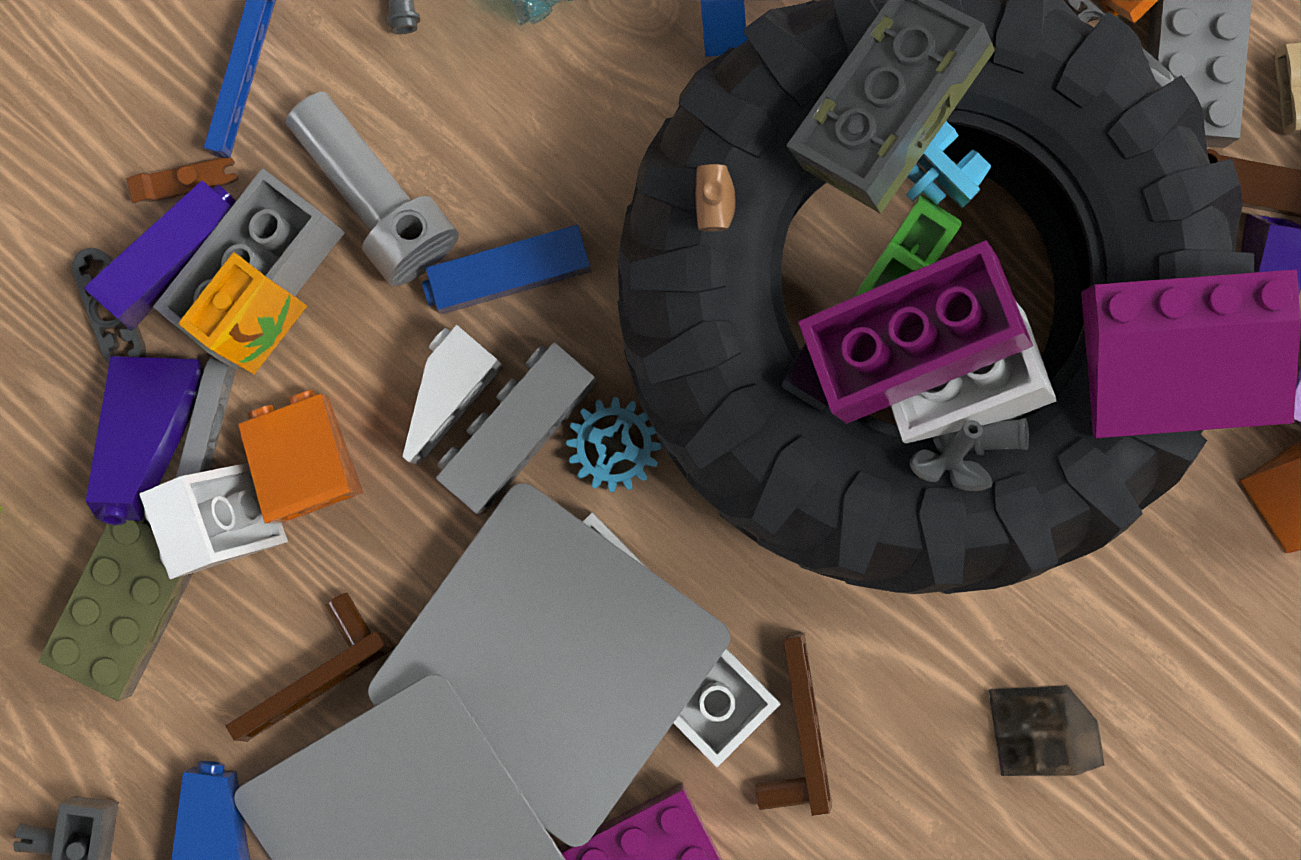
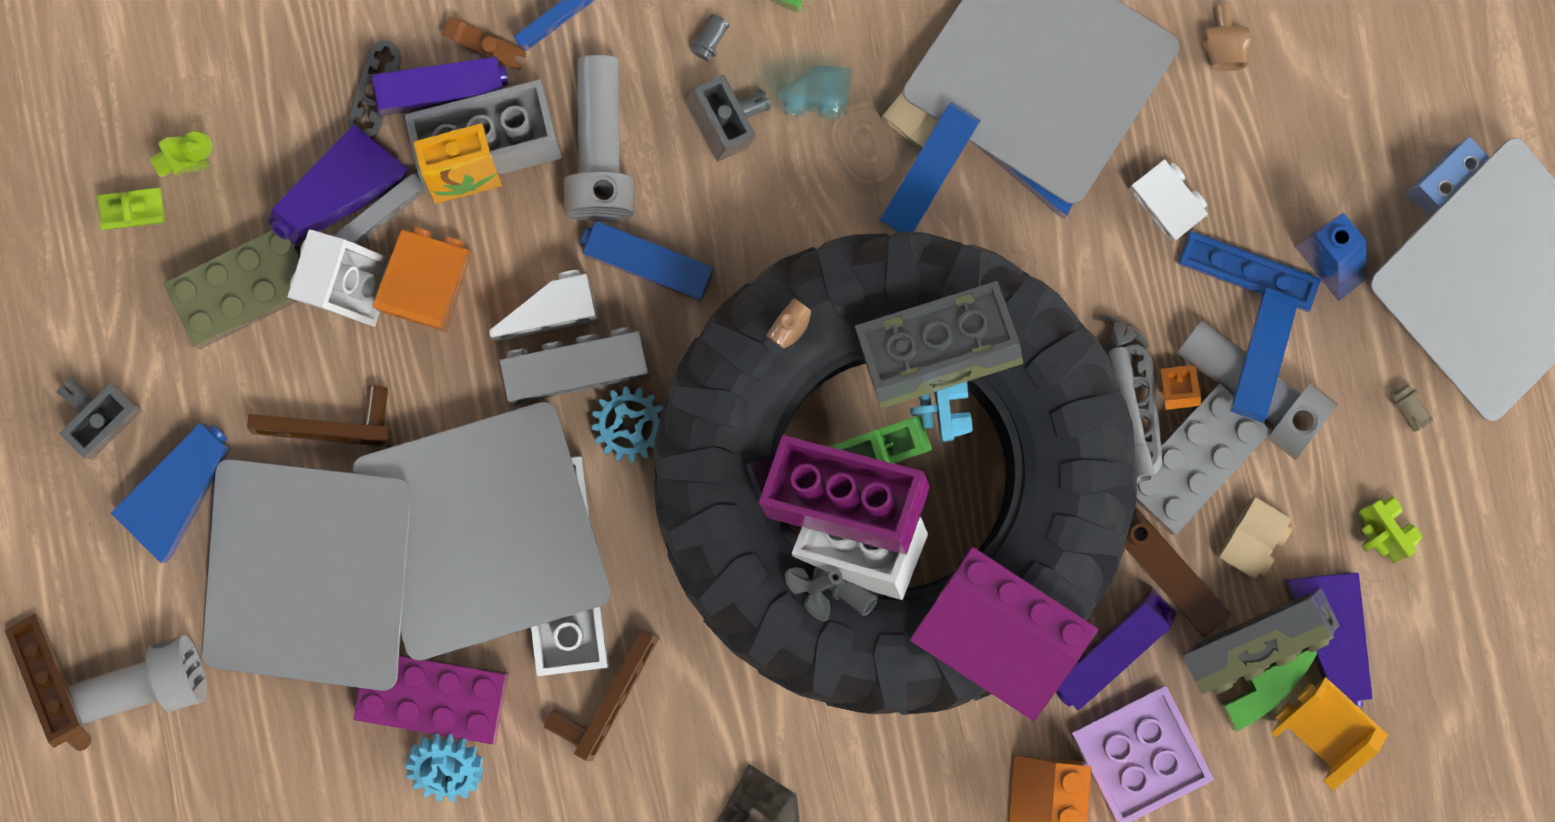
camera: 35 degrees right, 0 degrees up
(473, 69) = (724, 117): none -> dark grey brick

